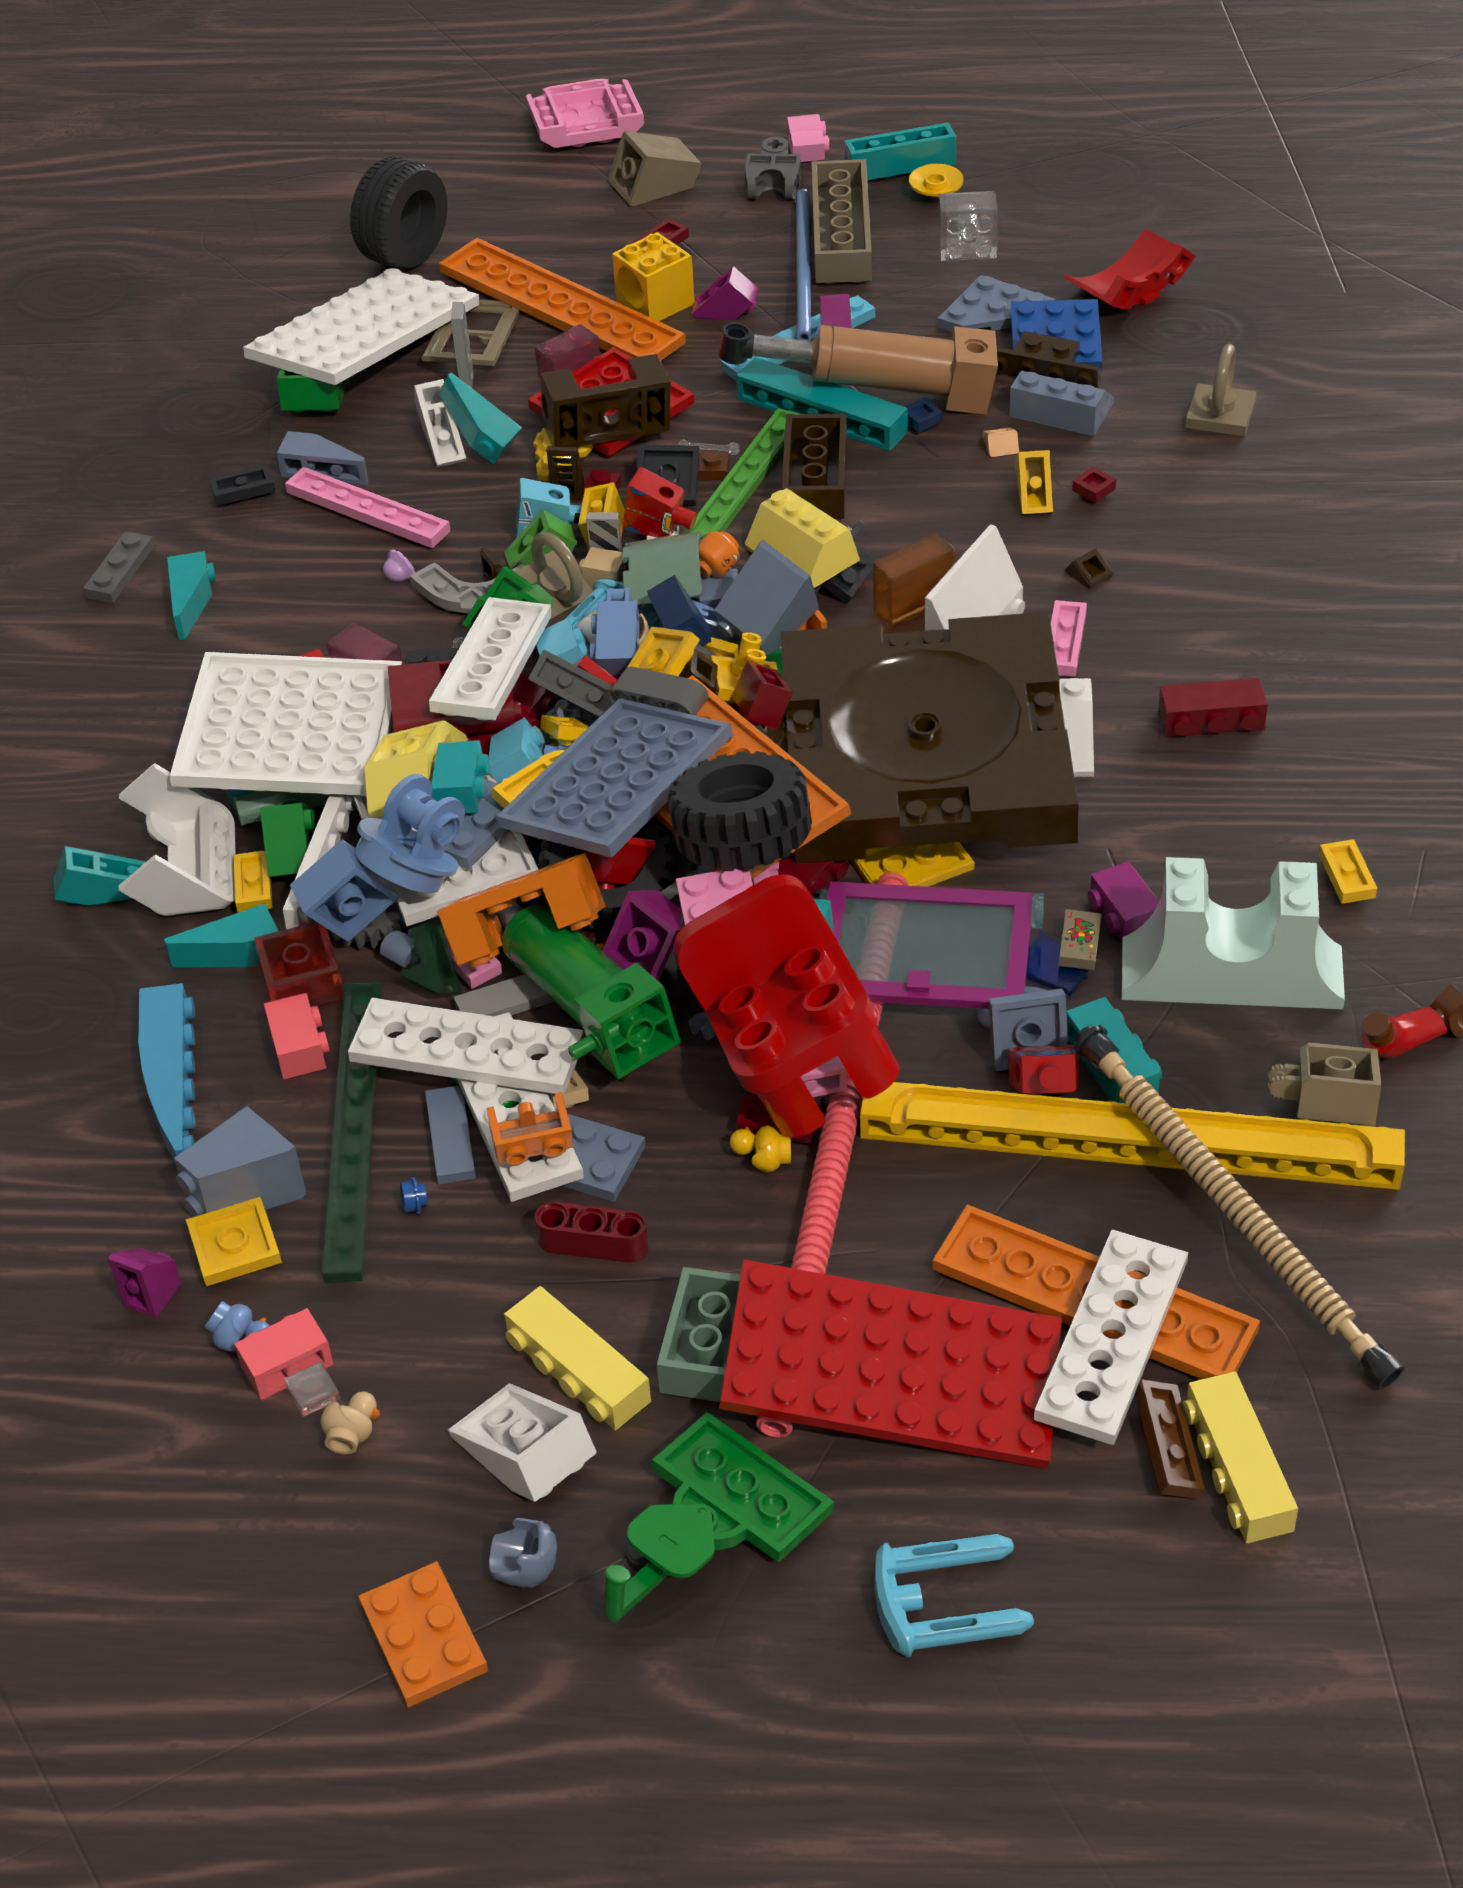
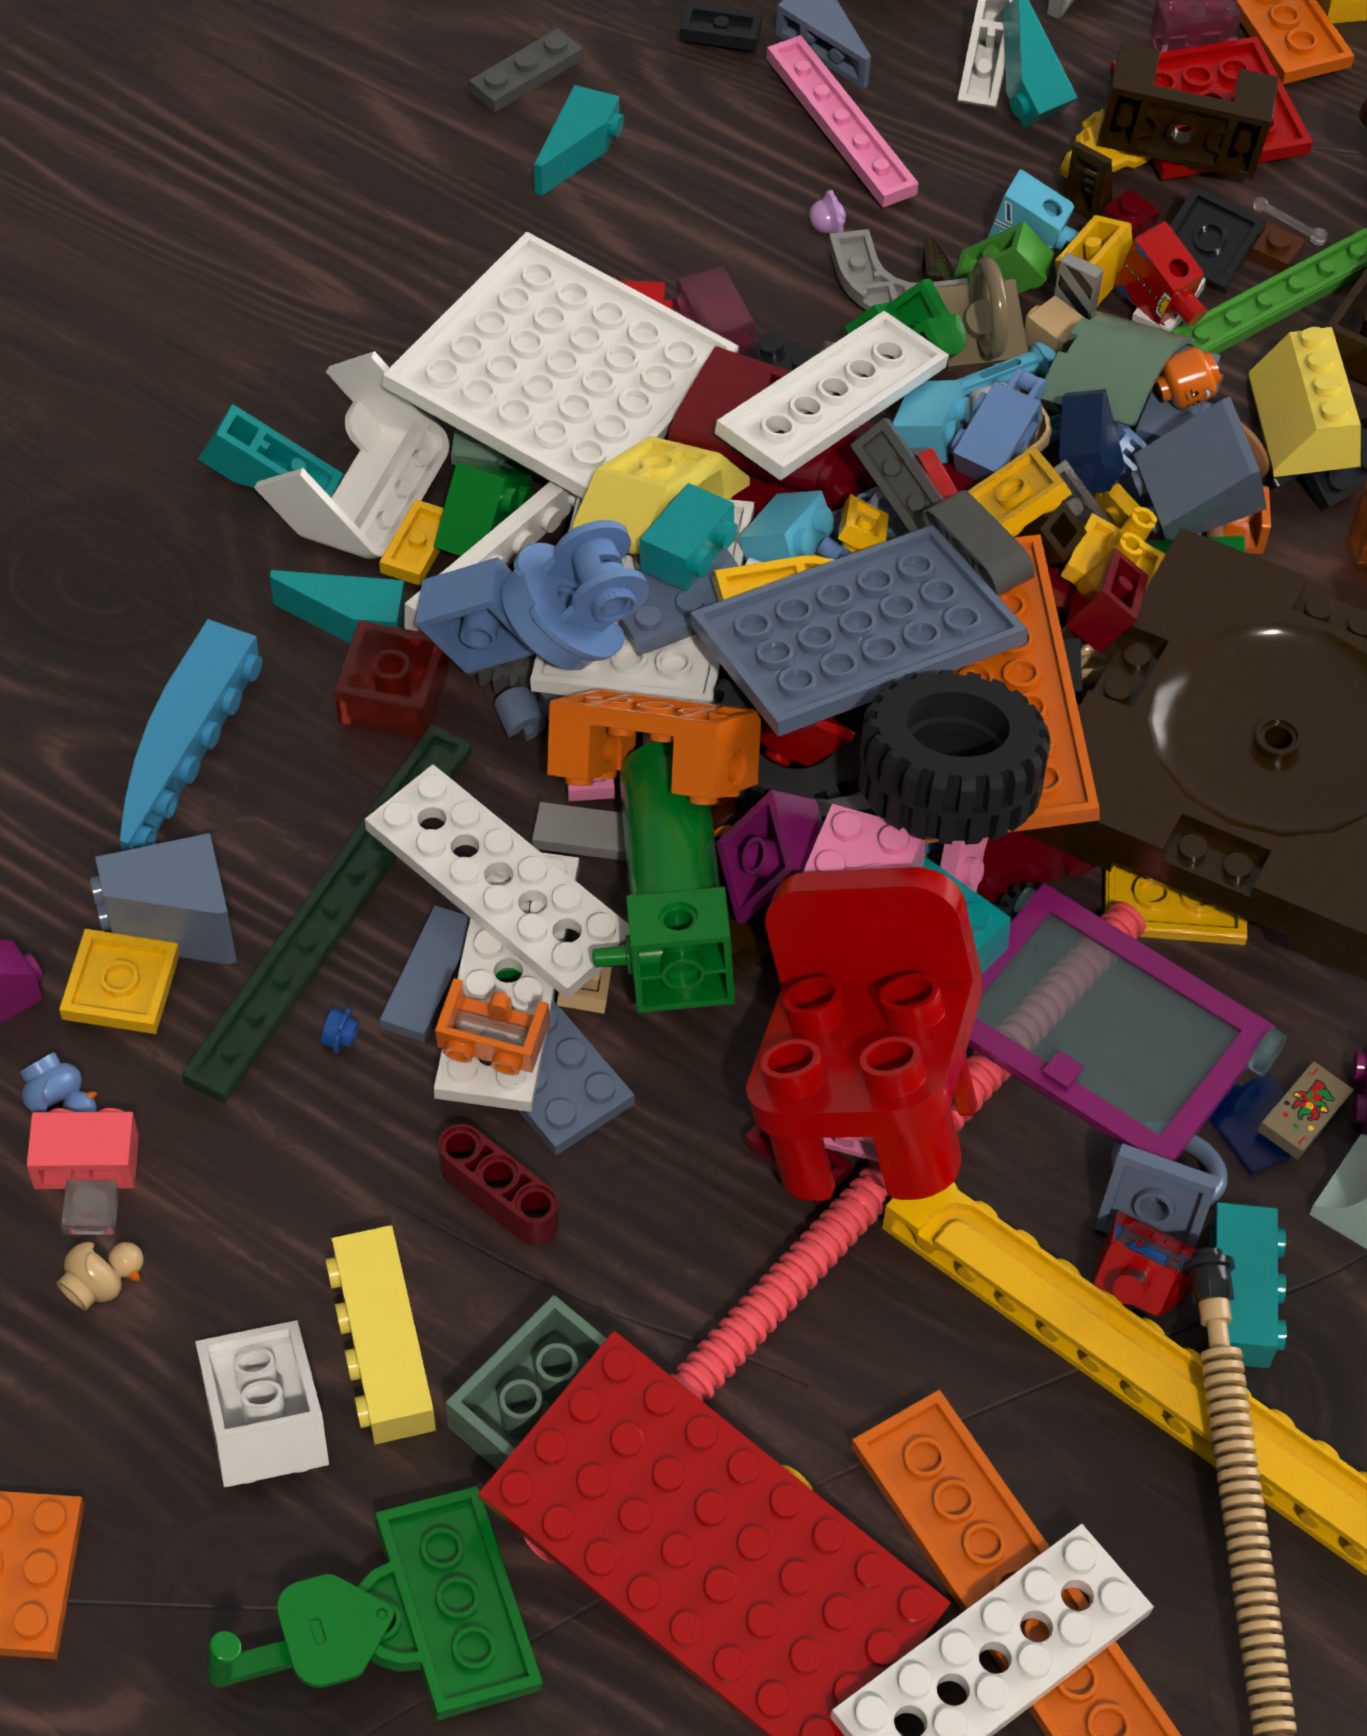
camera: 25 degrees right, 10 degrees up
(296, 1035) = (340, 761): coral brick -> none
(437, 967) = (530, 760): clear green slope -> none
(523, 1554) = (169, 1546): sand blue hair -> none
(769, 1146) = (762, 1188): yellow animal -> none

